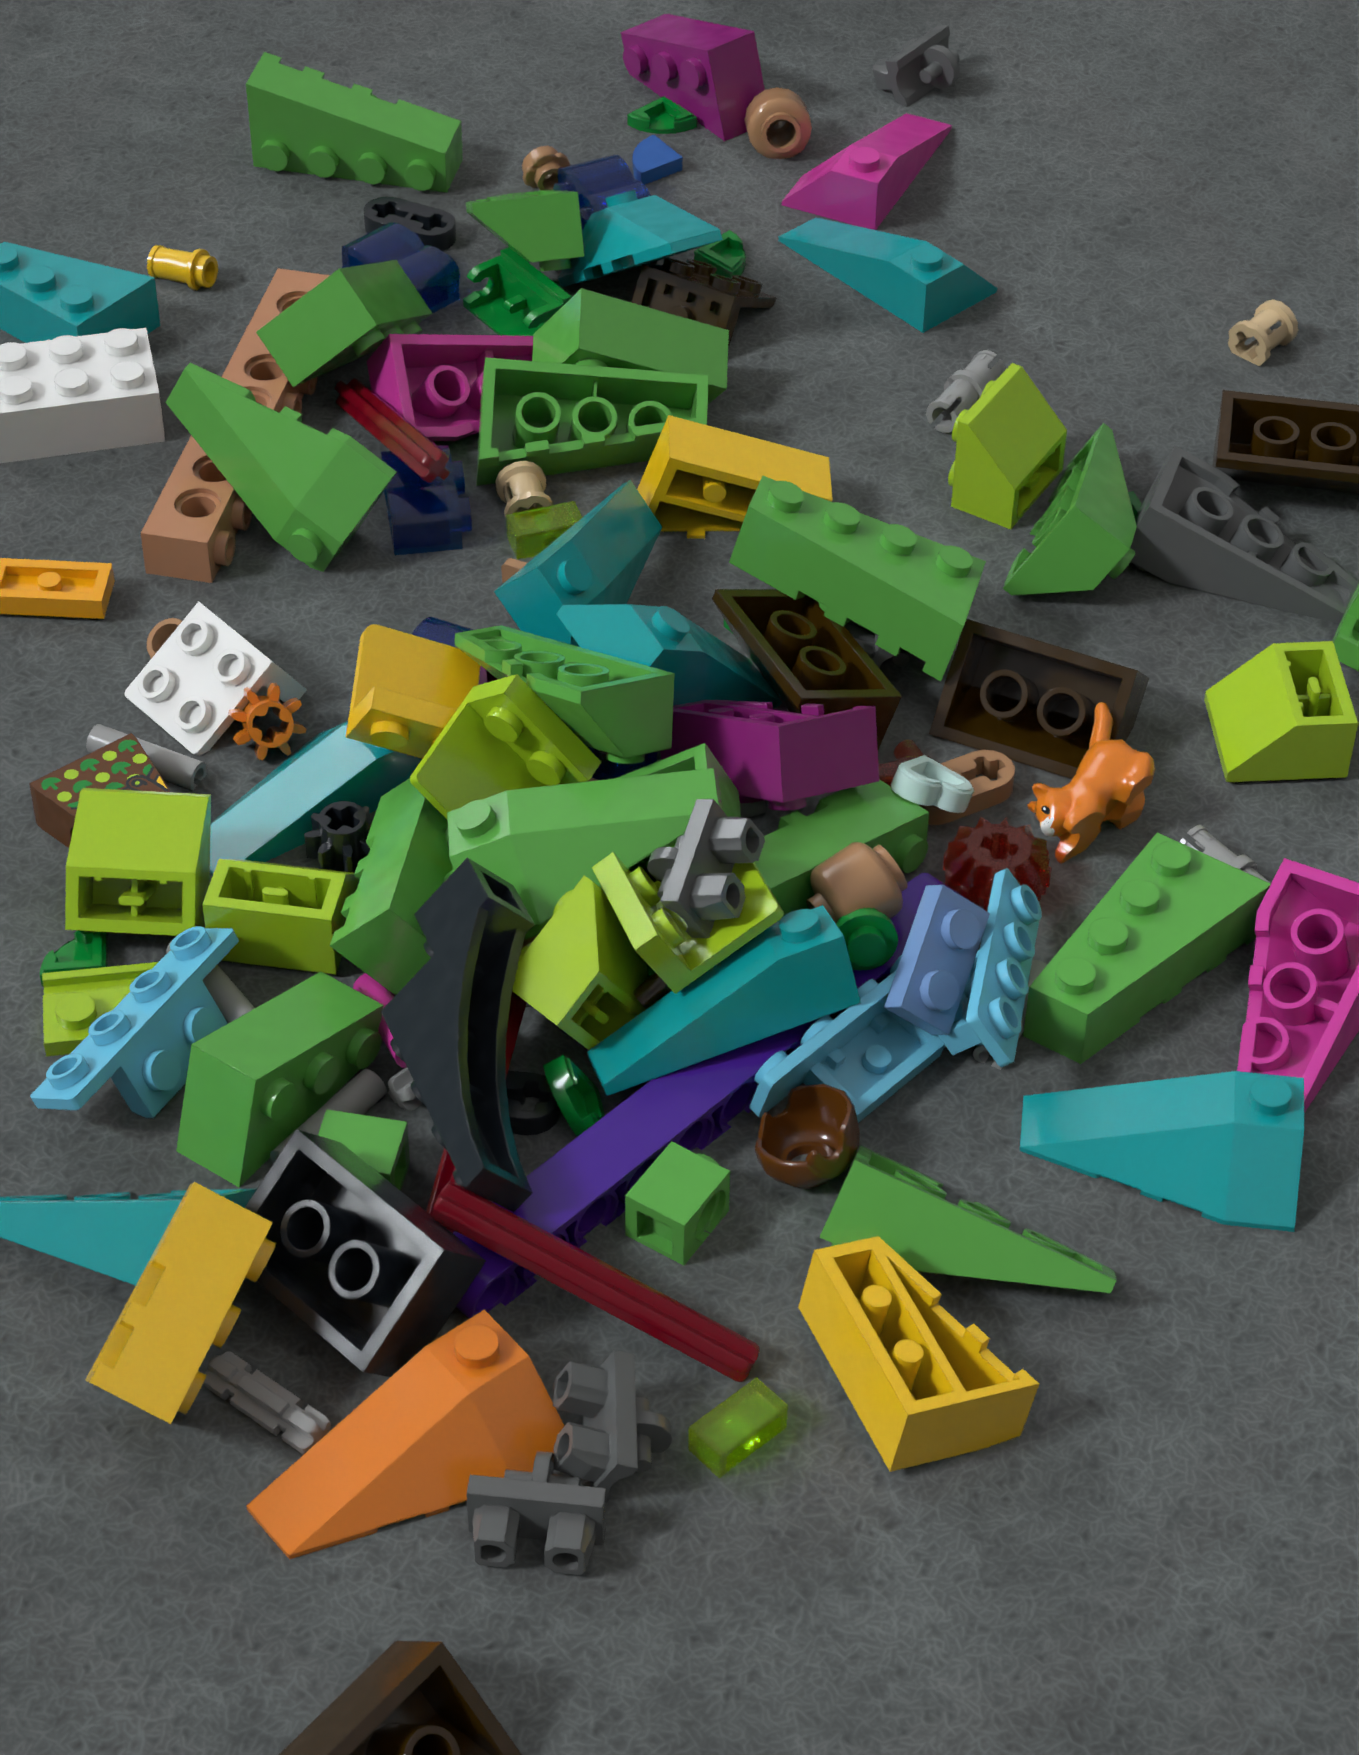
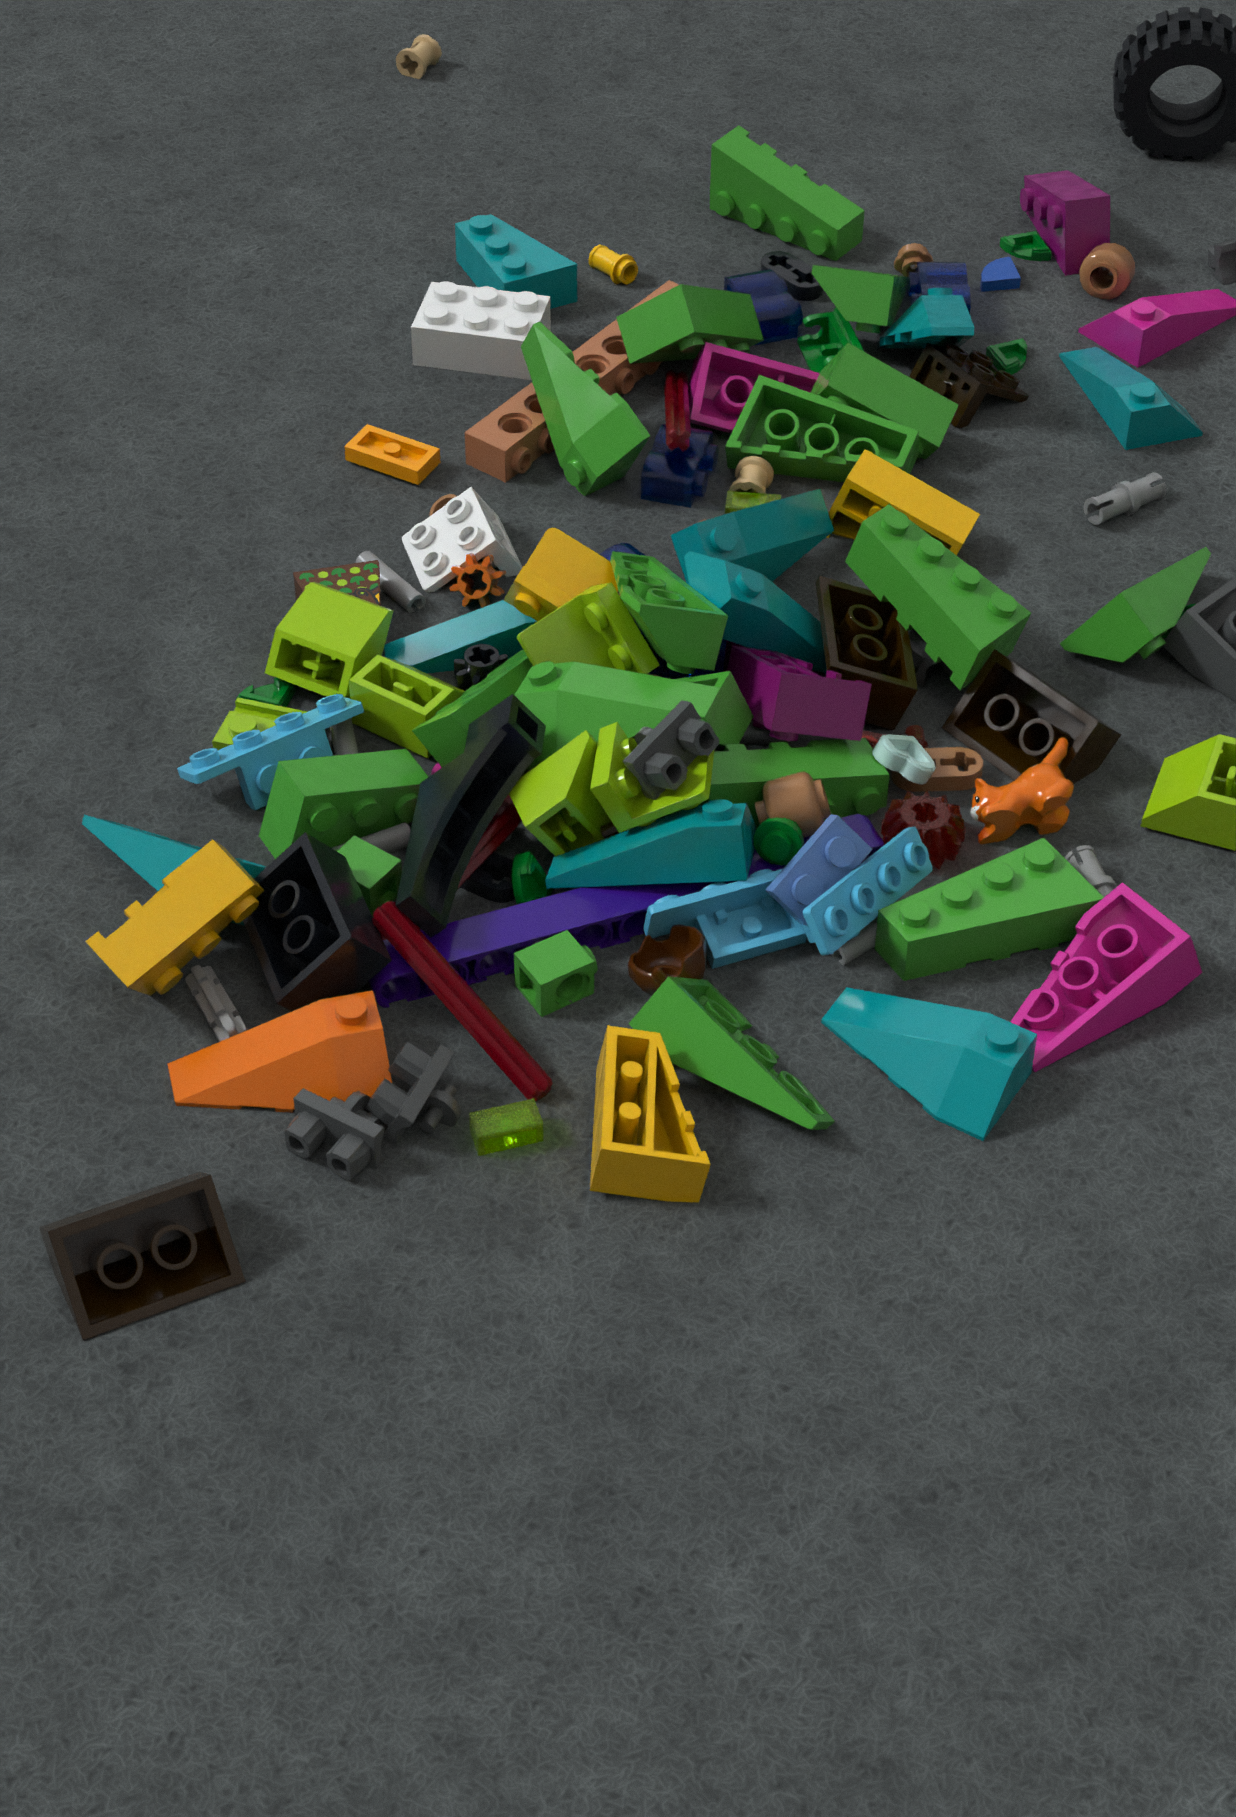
camera: 25 degrees right, 0 degrees up
(1005, 450) = (1117, 543): lime slope -> none

